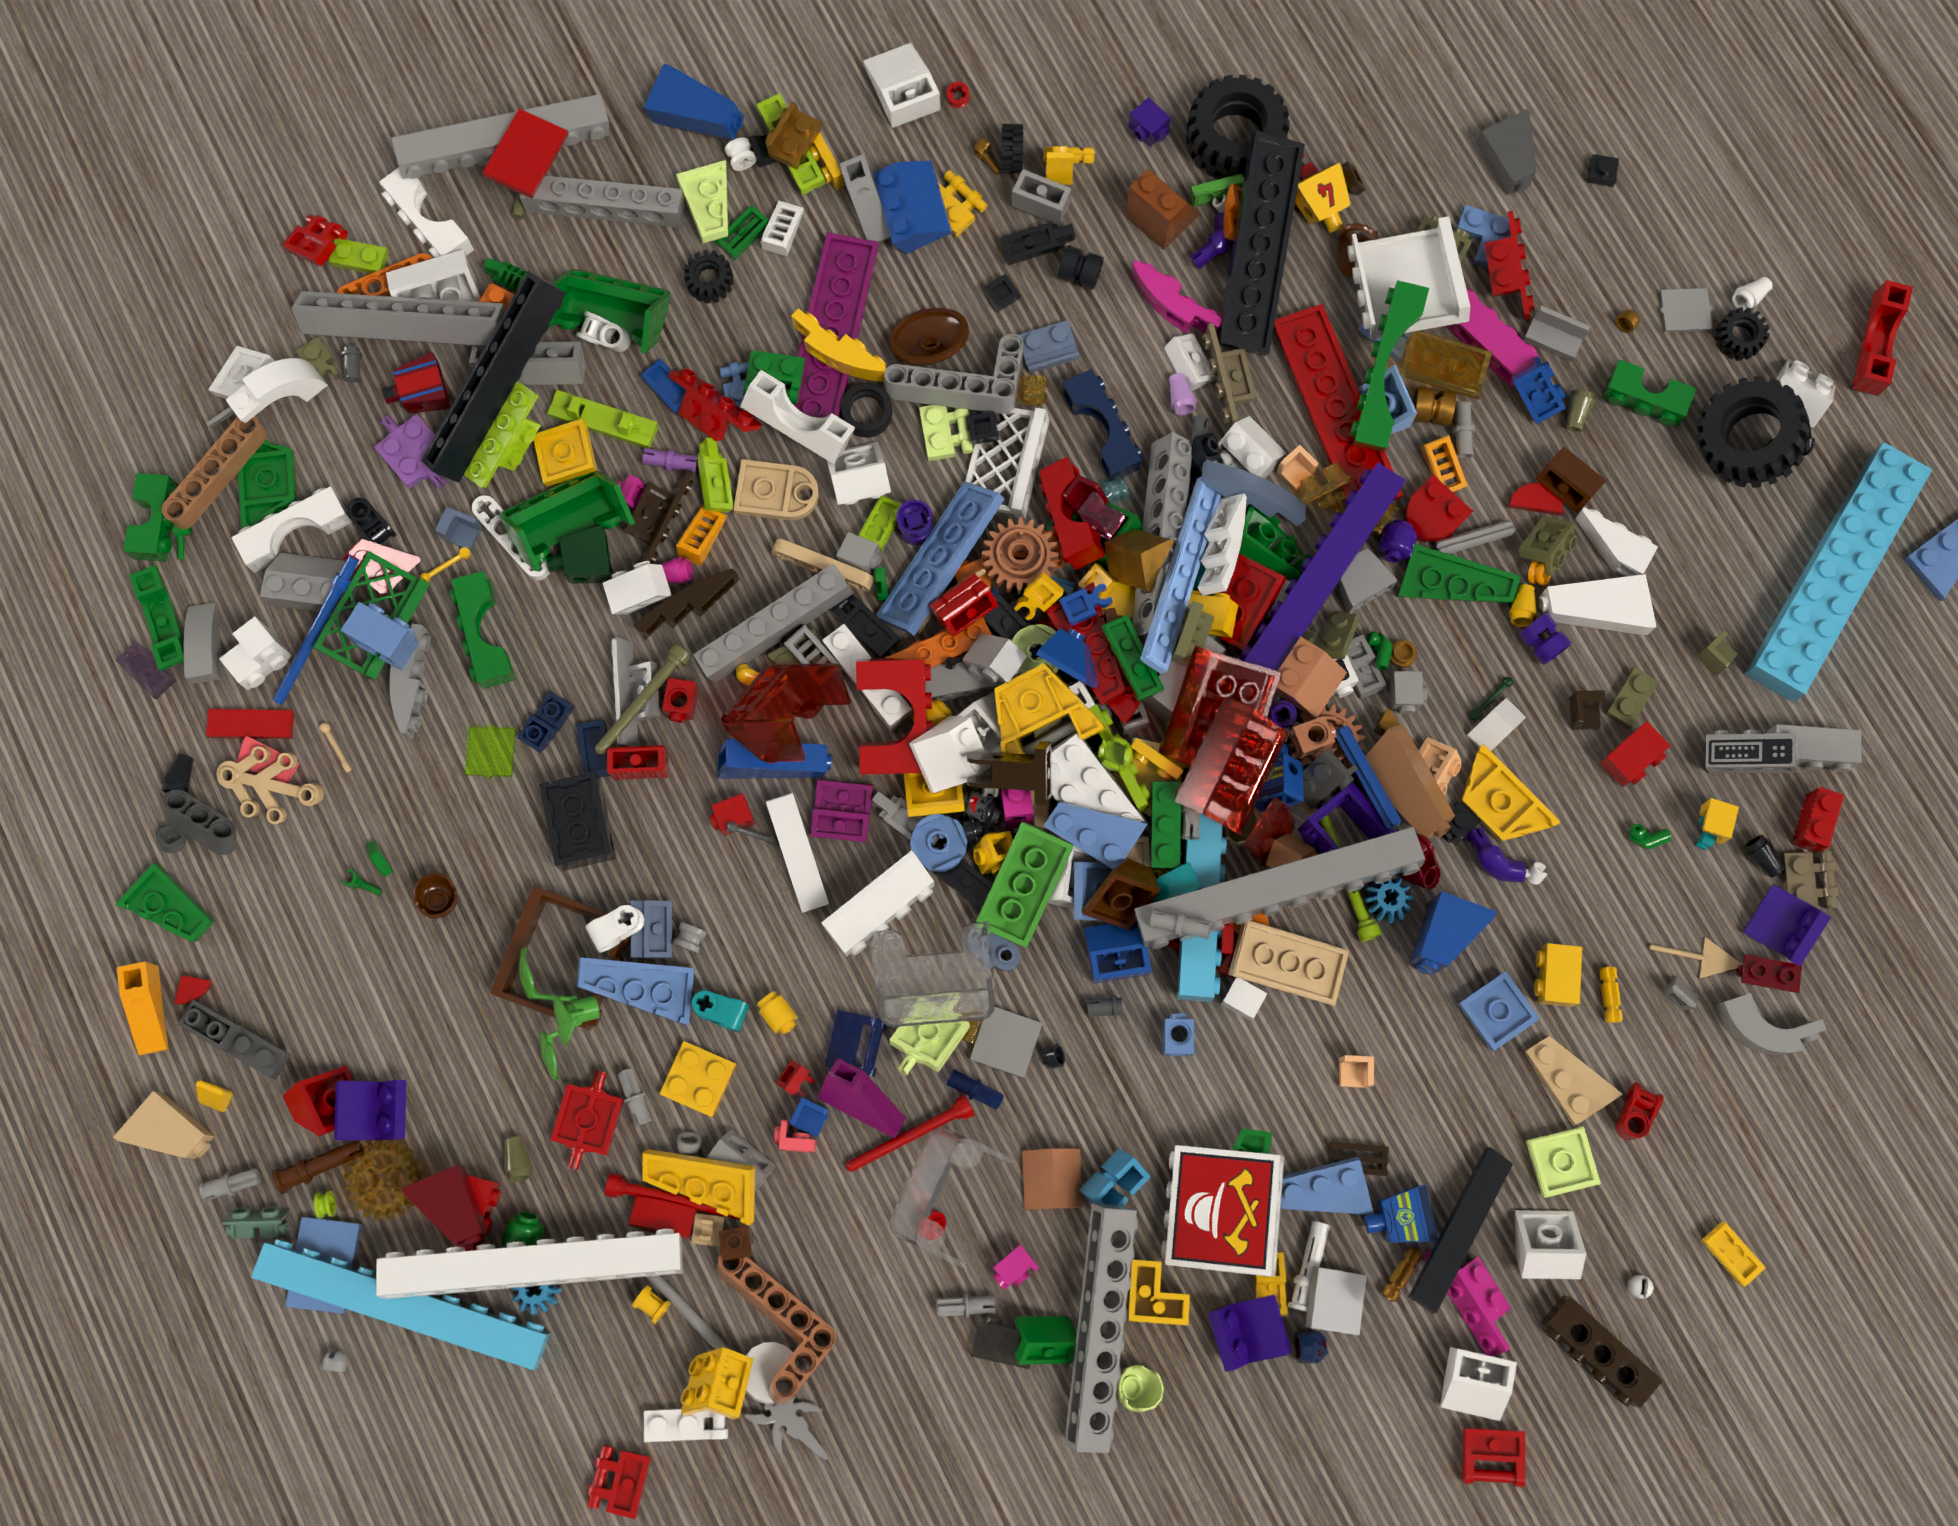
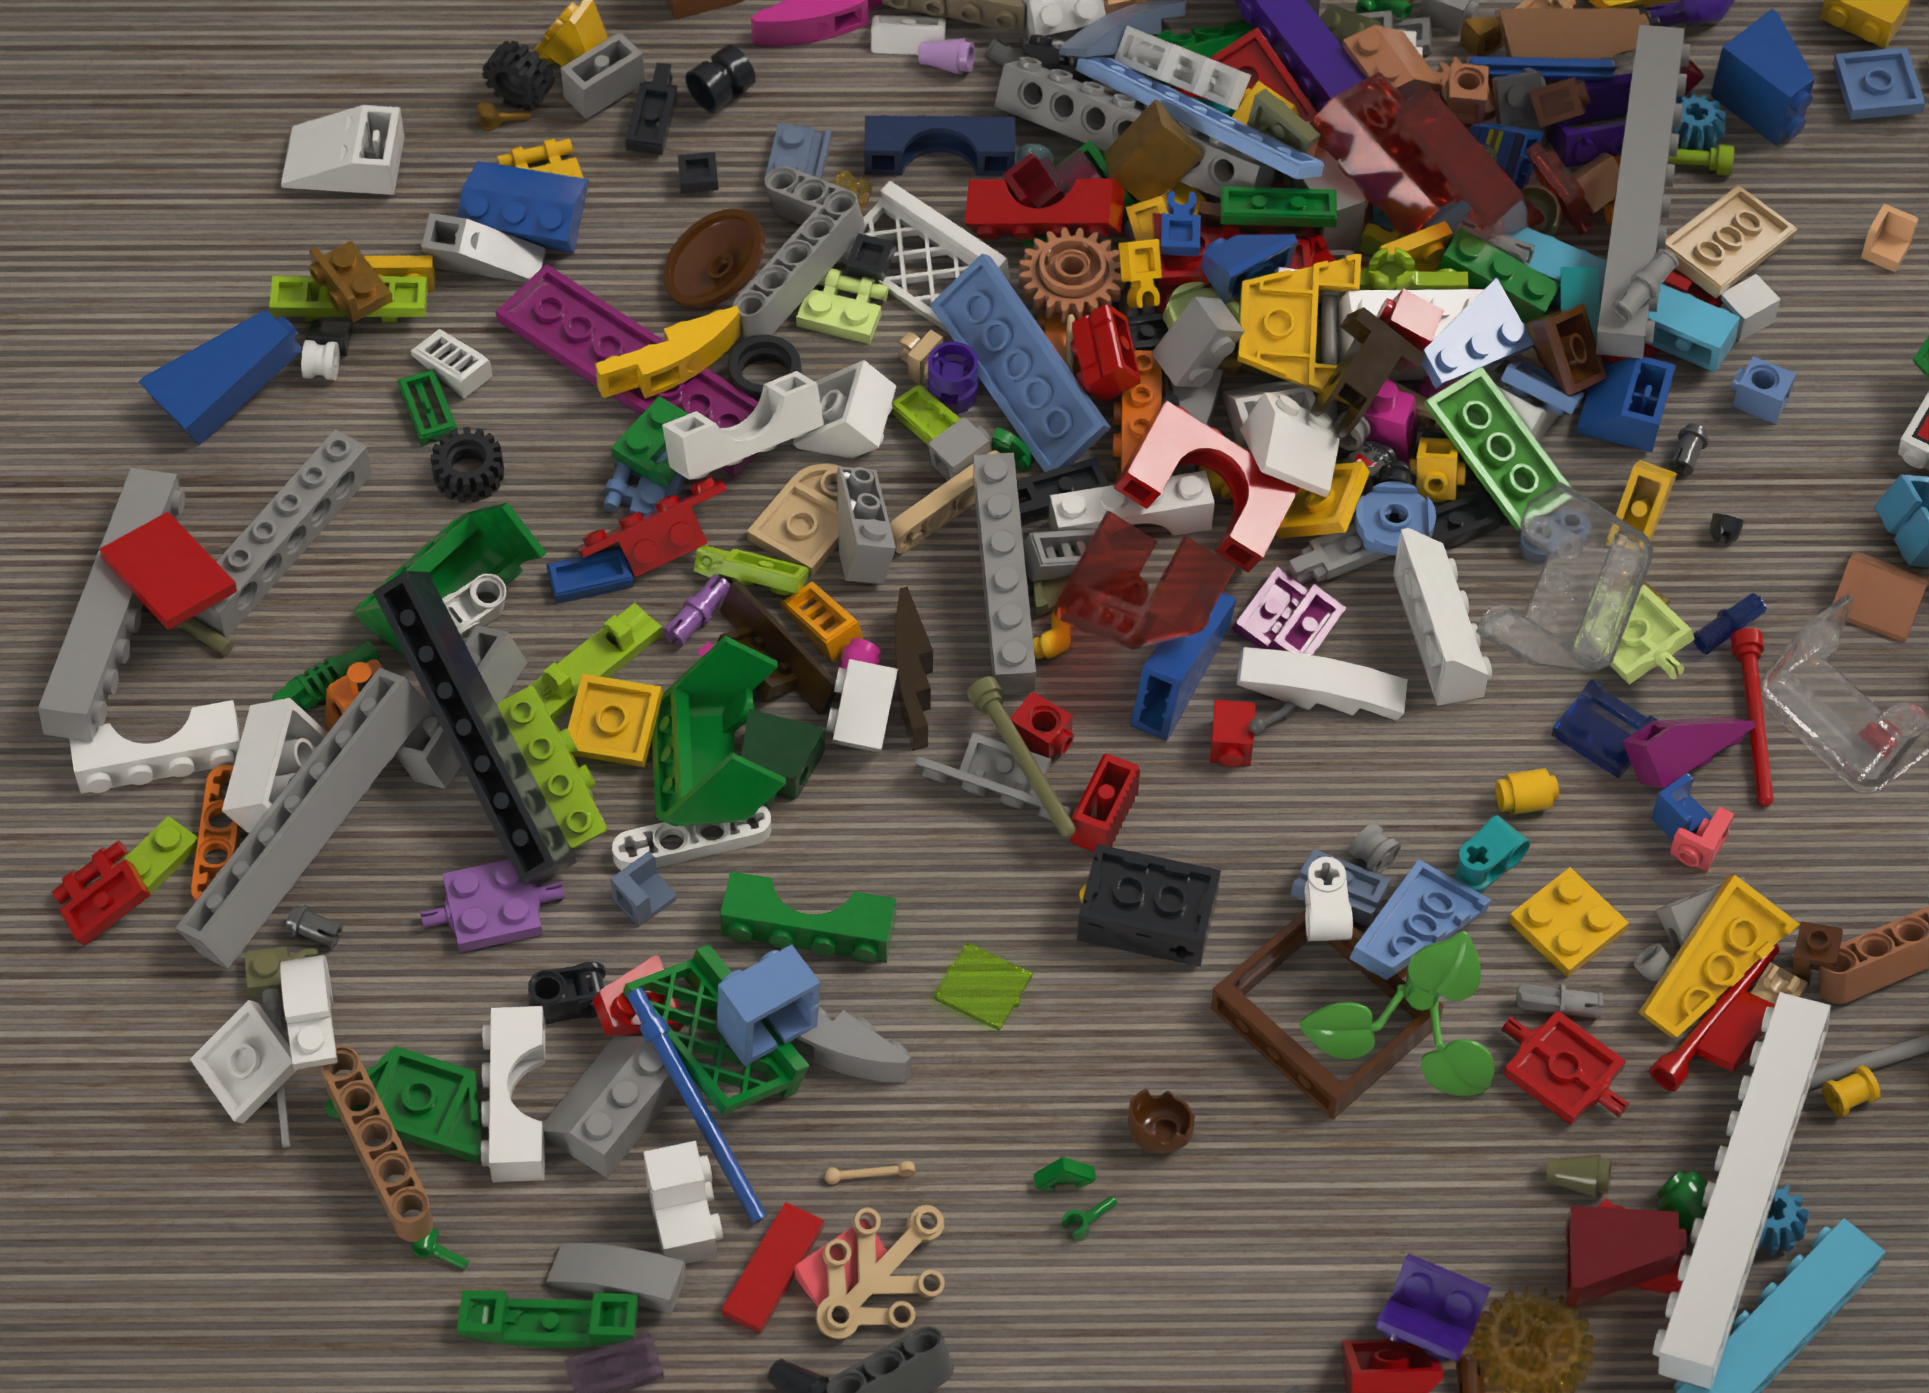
camera: 65 degrees left, 20 degrees down
(152, 539) = (358, 1246): green arch -> none
(419, 386) = (406, 852): torso -> none
(464, 553) = (678, 906): yellow hinge -> none
(546, 722) = (979, 900): dark blue slope -> none
(589, 736) = (1050, 859): dark blue tile -> none
(707, 199) = (366, 421): yellowish green wing -> none
(776, 522) = (863, 526): none -> light grey slope
(793, 1077) = (1621, 808): red tile -> none
(928, 494) = (917, 352): none -> tan tile
(957, 86) = (403, 101): red bush -> none
(1006, 1042) = (1687, 569): light grey tile -> none
(1041, 995) = (1646, 496): none -> yellow slope
(1069, 782) = (1411, 318): none -> brick
(1332, 802) = (1560, 101): none -> reddish brown bracket

